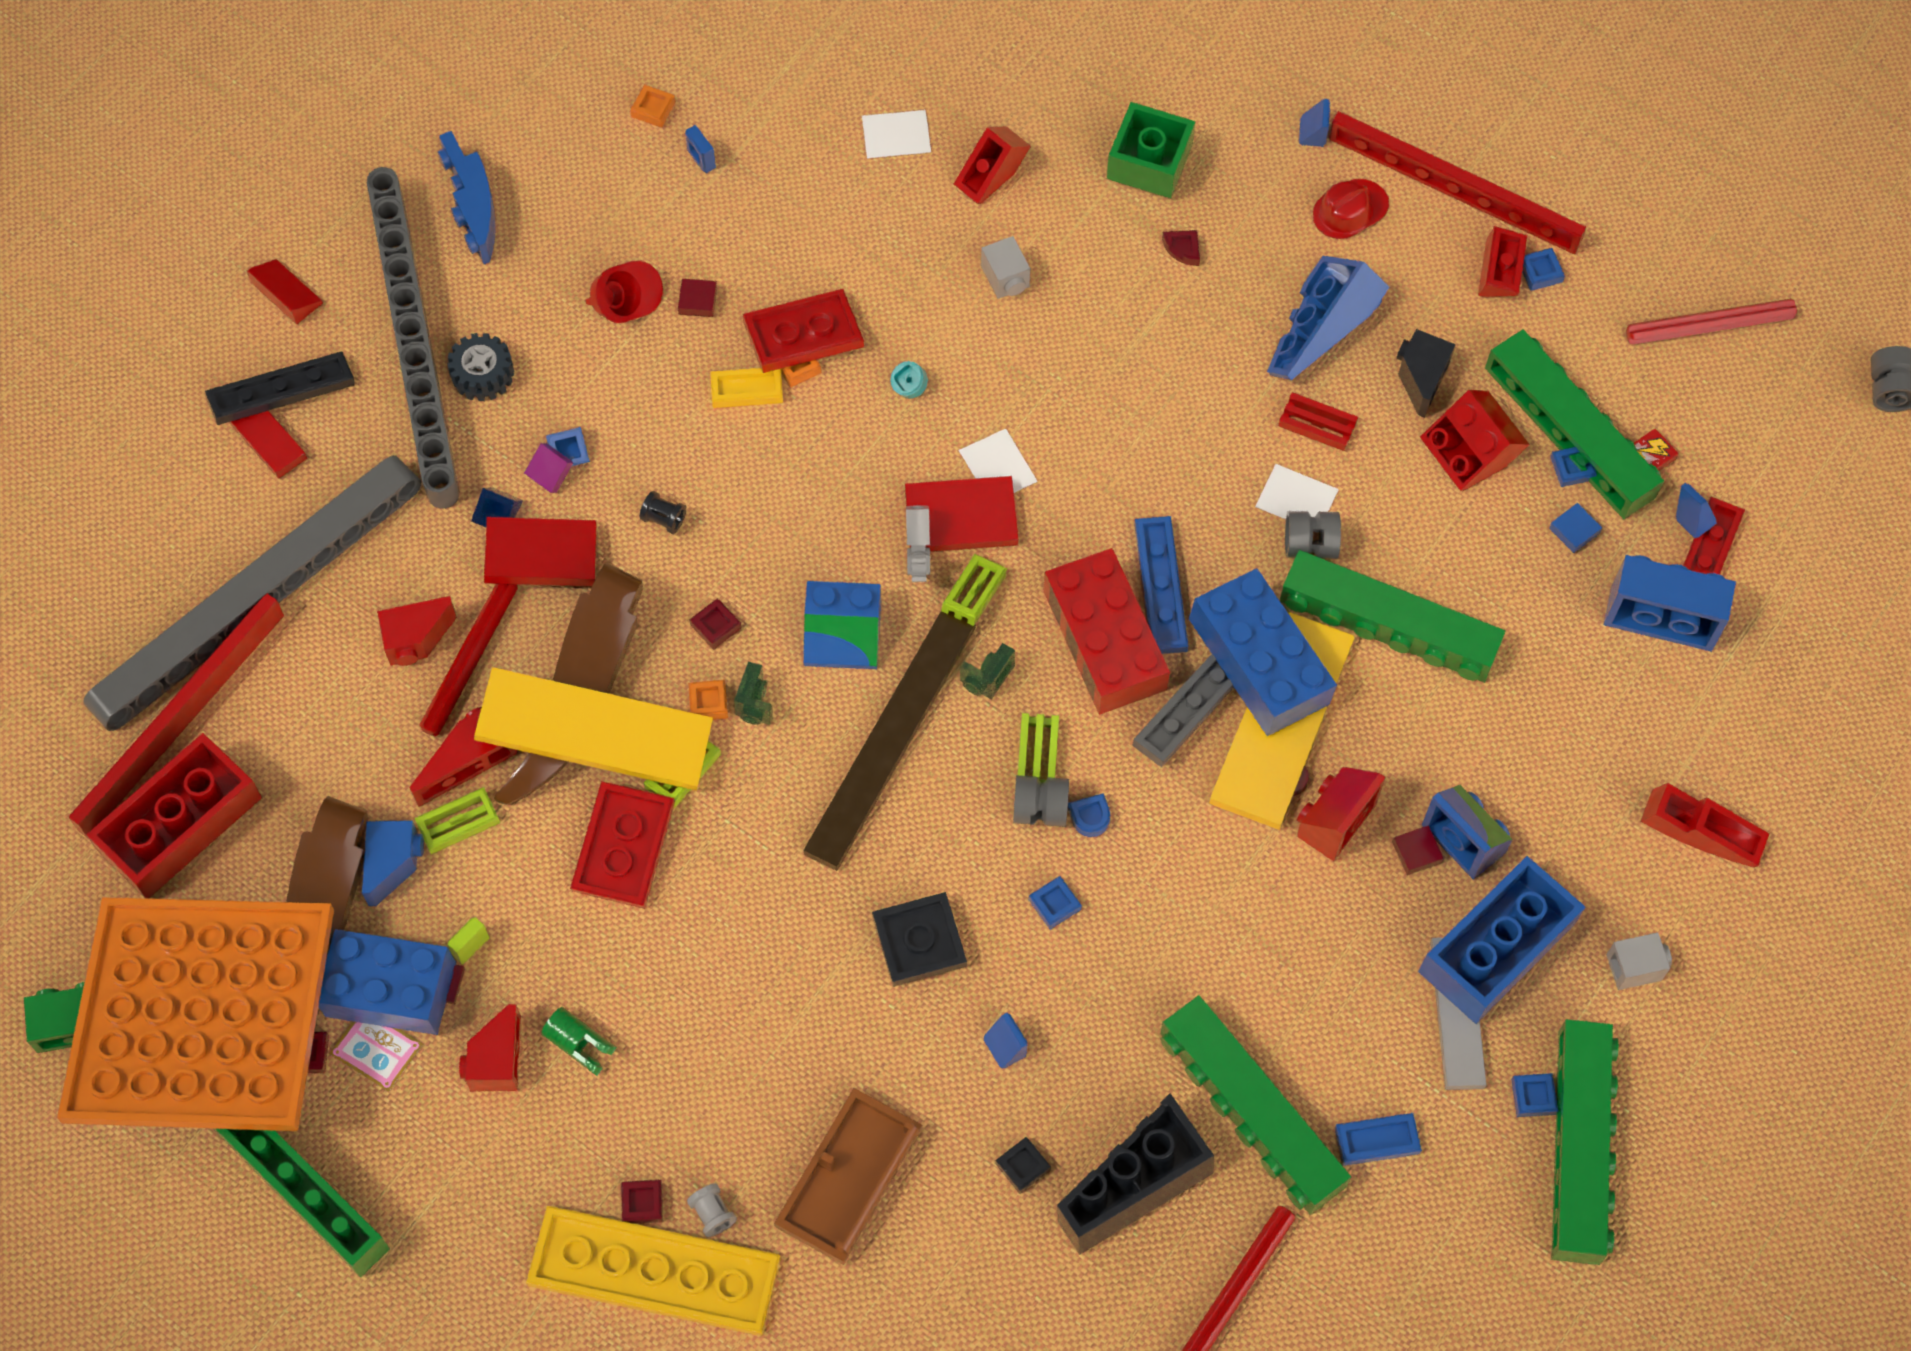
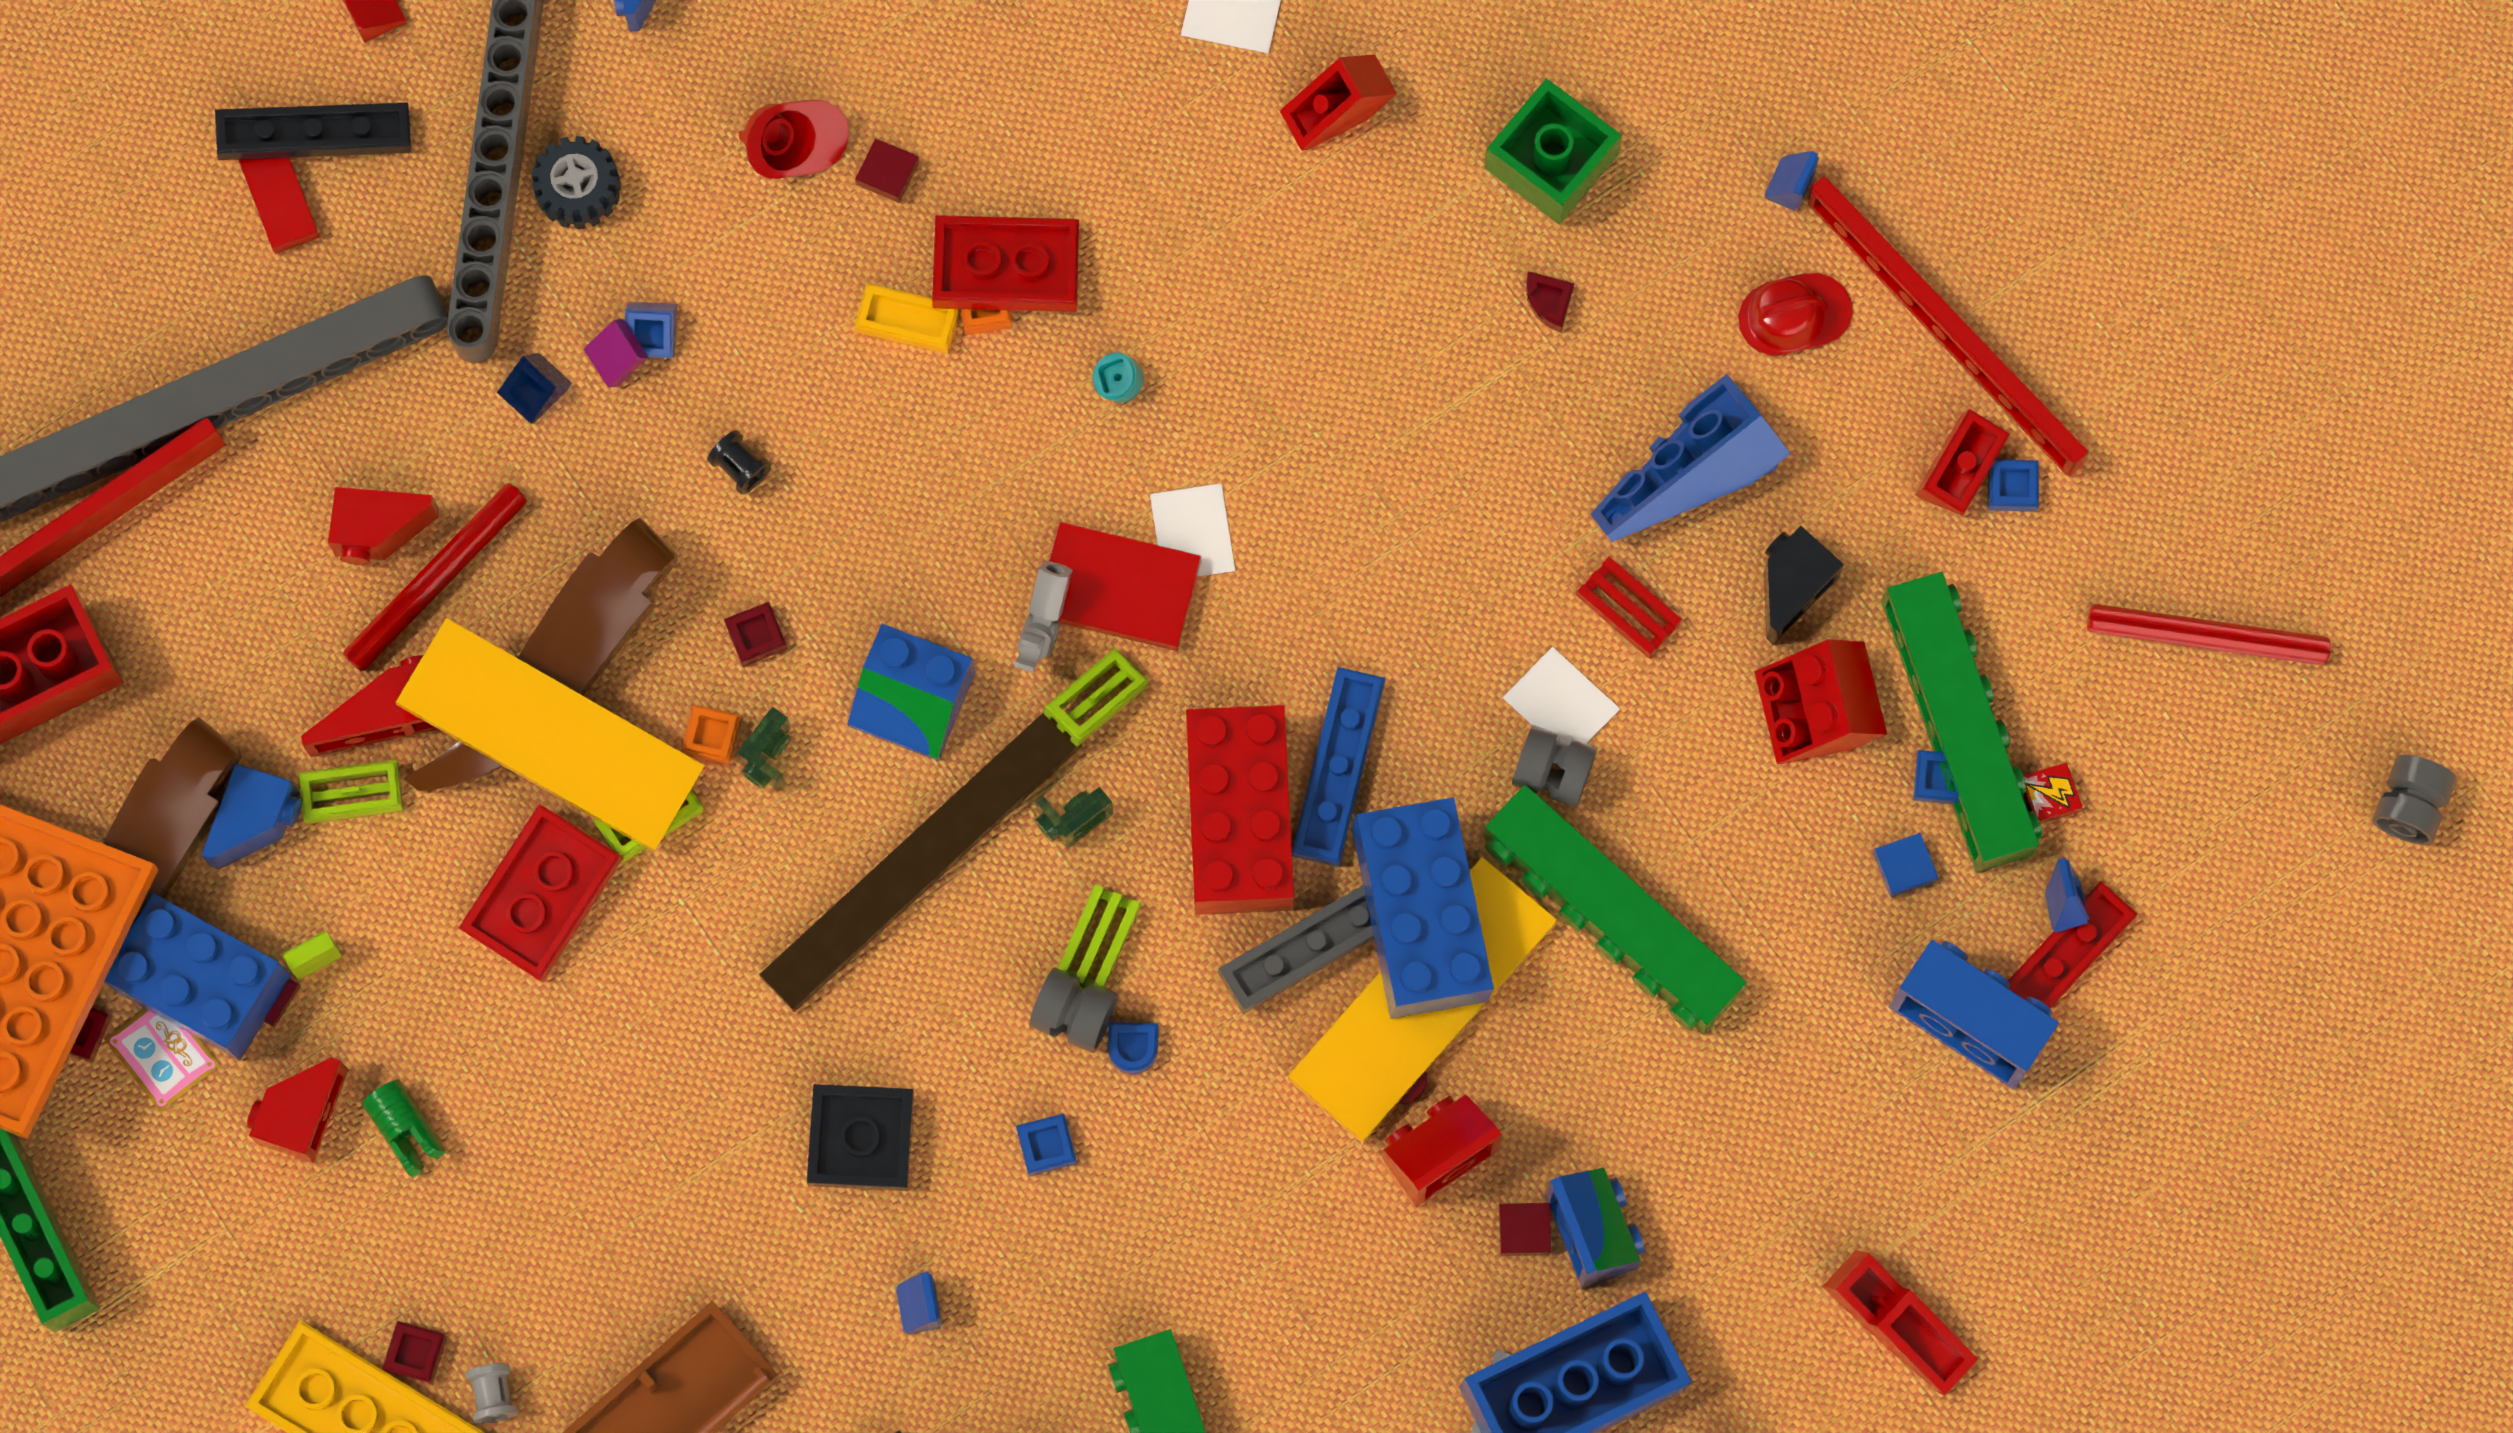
camera: 20 degrees right, 10 degrees up
(540, 551) = (567, 467): red tile -> none
(1005, 267) = (1300, 259): light grey brick -> none

